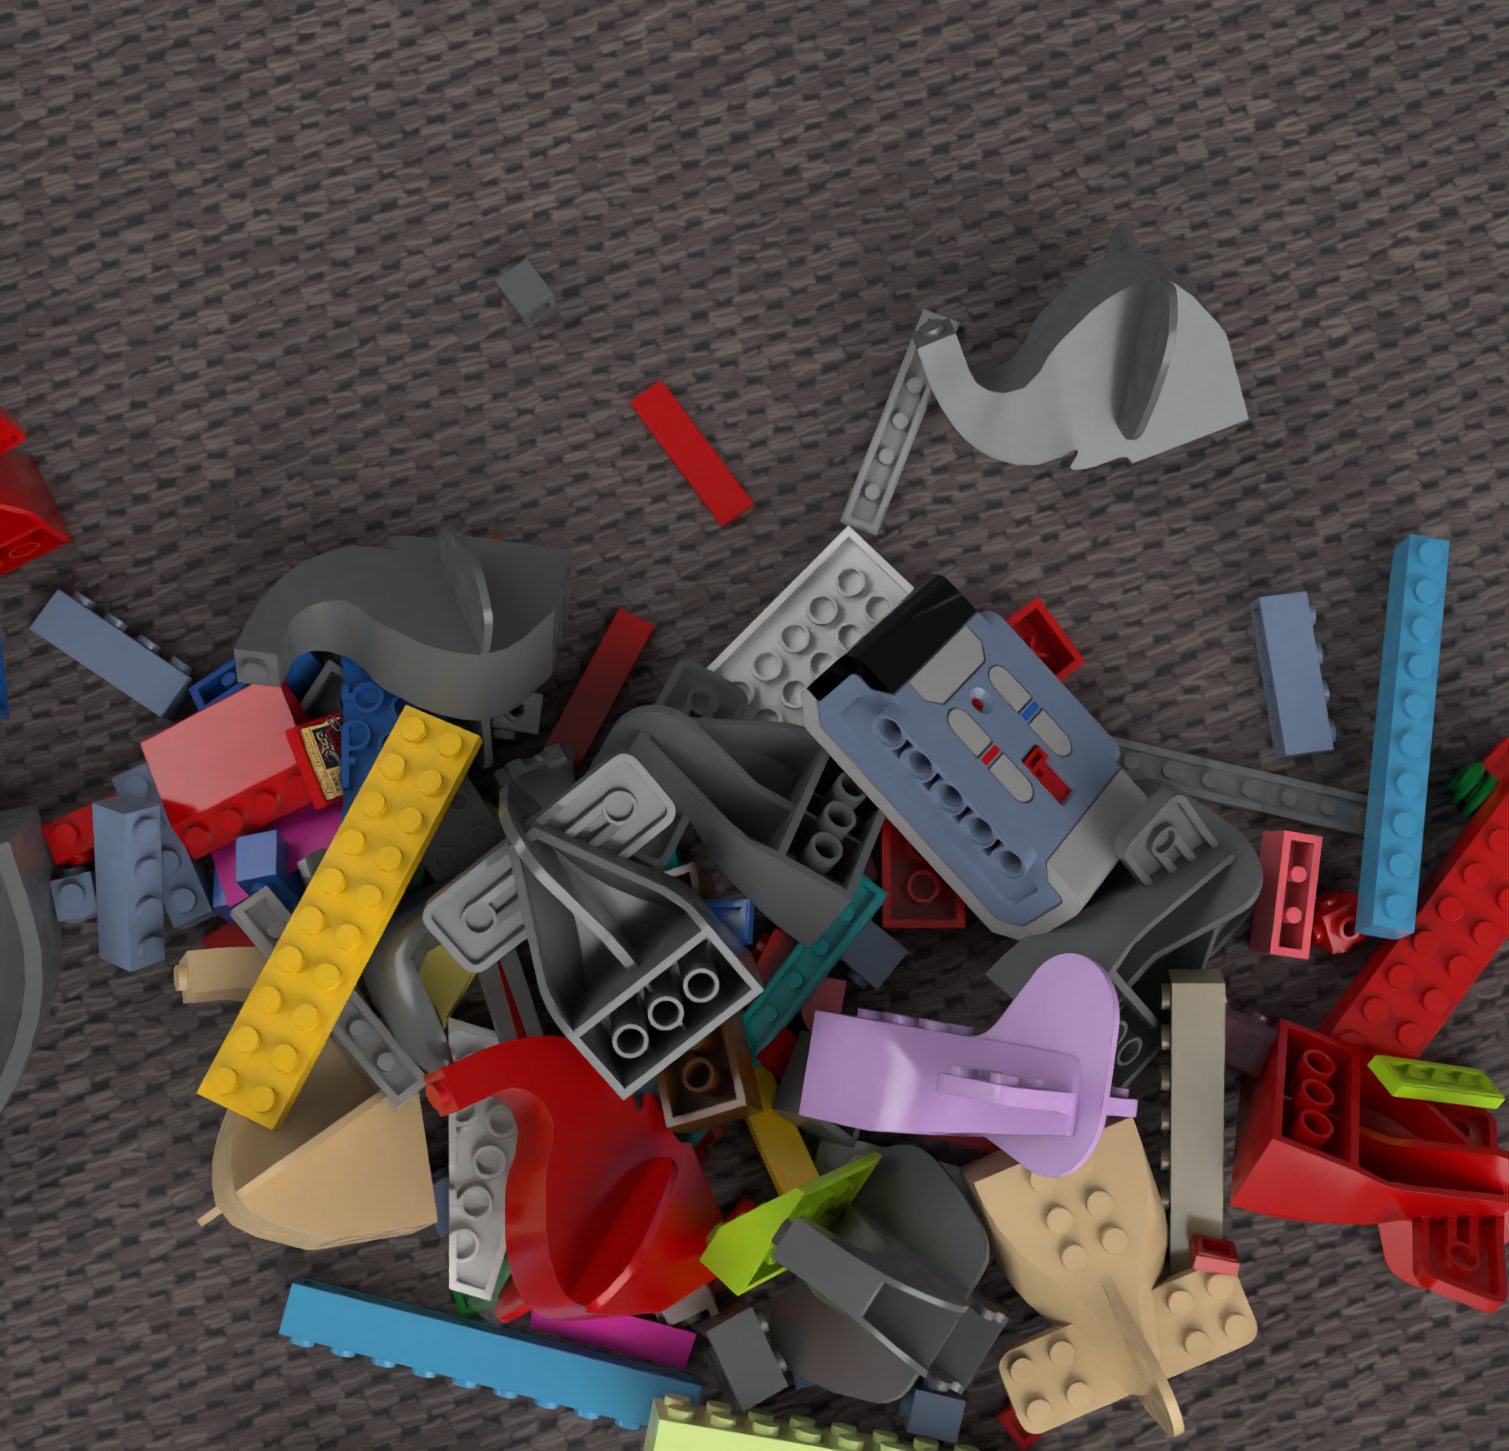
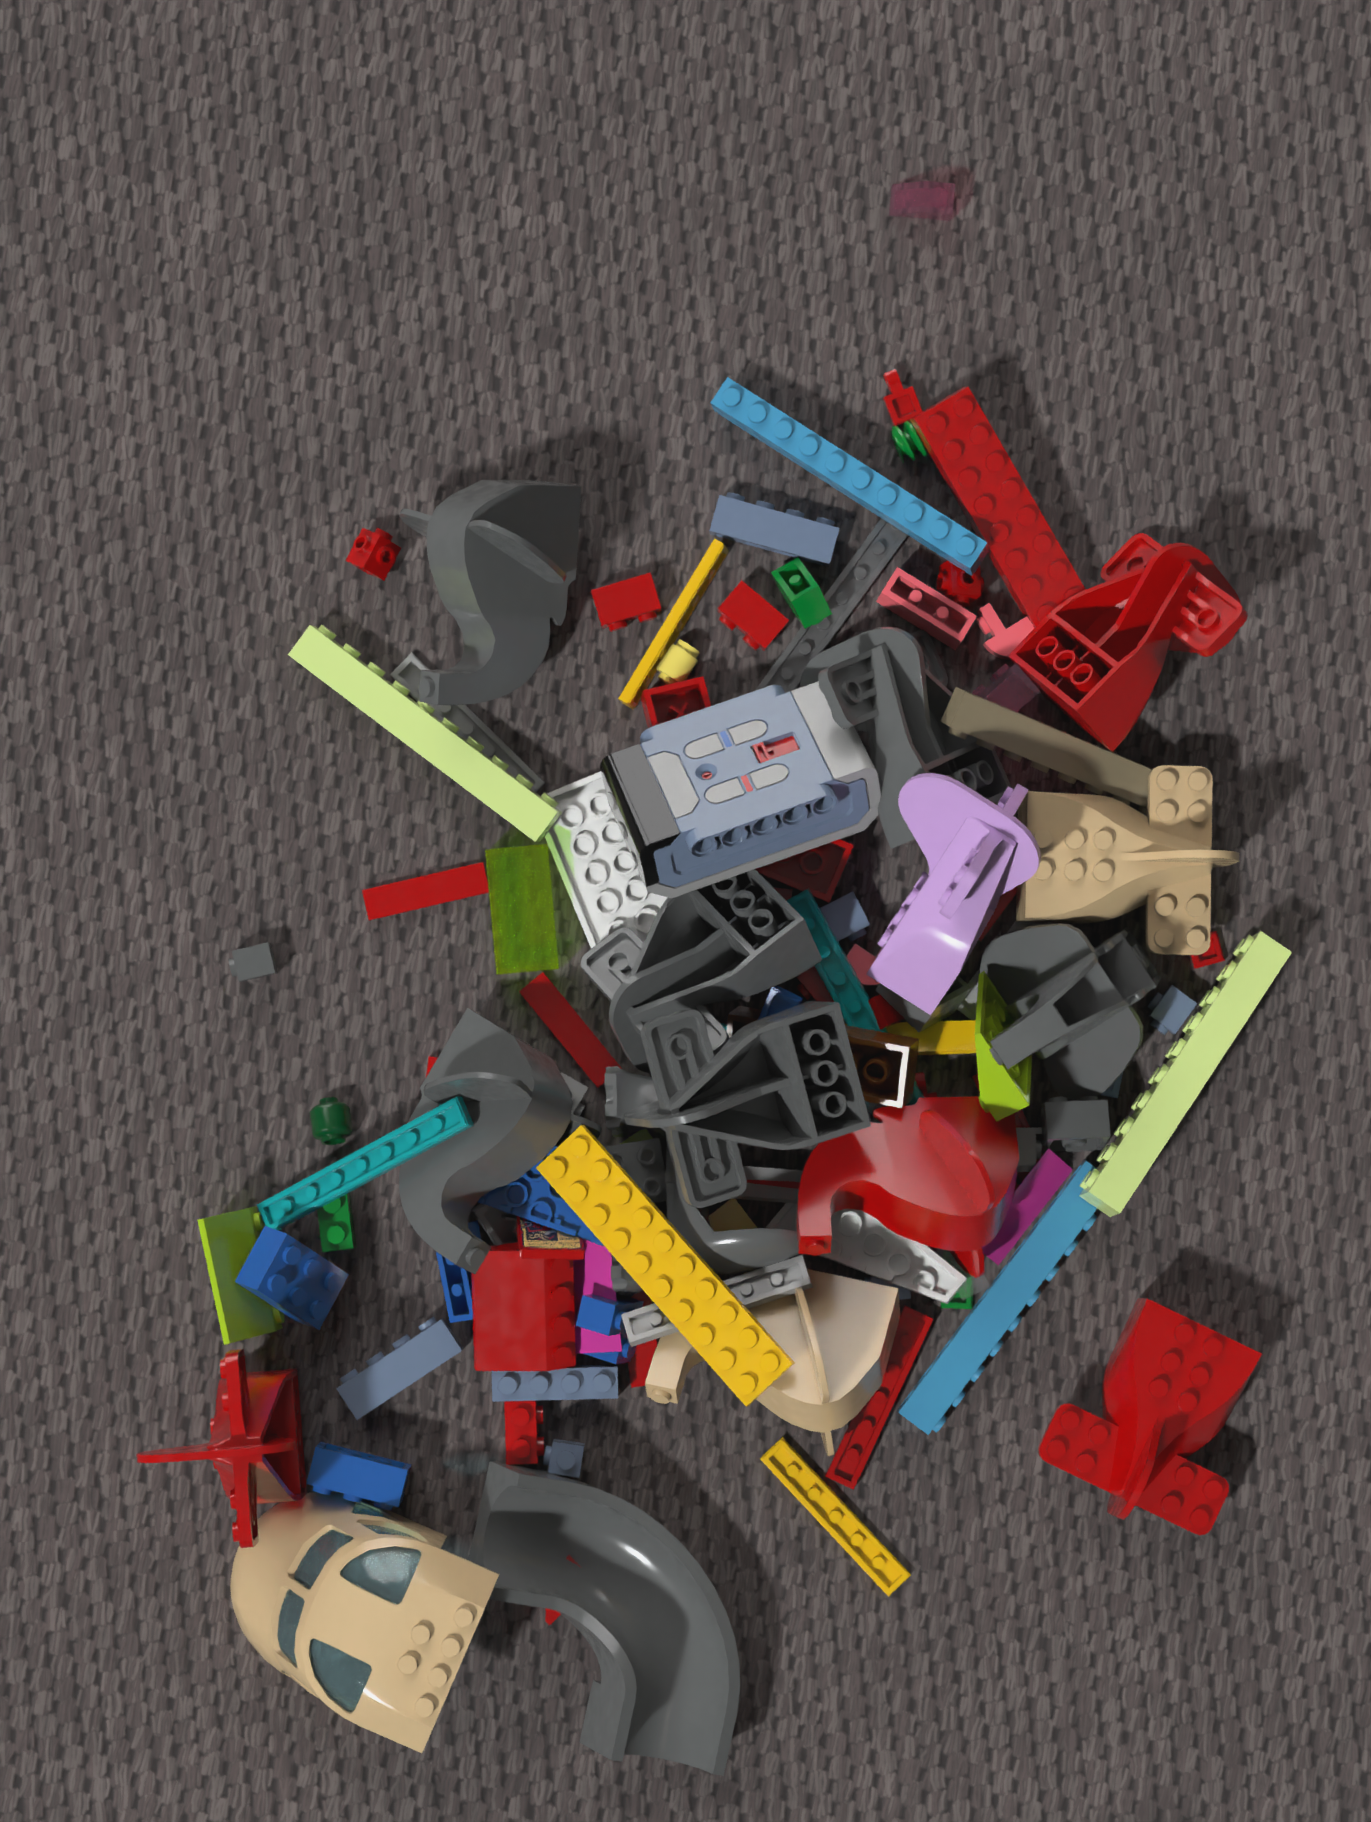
camera: 60 degrees left, 5 degrees up
(129, 881) = (573, 1415): sand blue brick -> none
(138, 1258) = (835, 1516): none -> yellow tile
(143, 417) = (226, 1245): none -> lime slope
(163, 477) = (291, 1277): none -> blue brick
(232, 1248) = (867, 1424): none -> red plate
(262, 506) = (337, 1225): none -> green brick
(334, 506) = (366, 1164): none -> teal tile
(376, 455) = (331, 1121): none -> dark green head
(717, 568) = (522, 909): none -> clear neon green piece
(873, 374) = (425, 733): none -> yellowish green brick
(1055, 230) = (374, 553): none -> red brick
(1087, 628) = (677, 662): none -> light yellow brick
(1129, 539) = (626, 601): none -> red brick
(1131, 605) = (674, 623): none -> yellow tile
(1179, 692) = (752, 616): none -> red brick
(1214, 1255) = (1144, 775): red tile -> none
(1237, 737) = (801, 593): none -> green brick
(1291, 1001) = (1003, 639): none -> coral brick
(1436, 1082) = (1096, 567): lime tile -> none

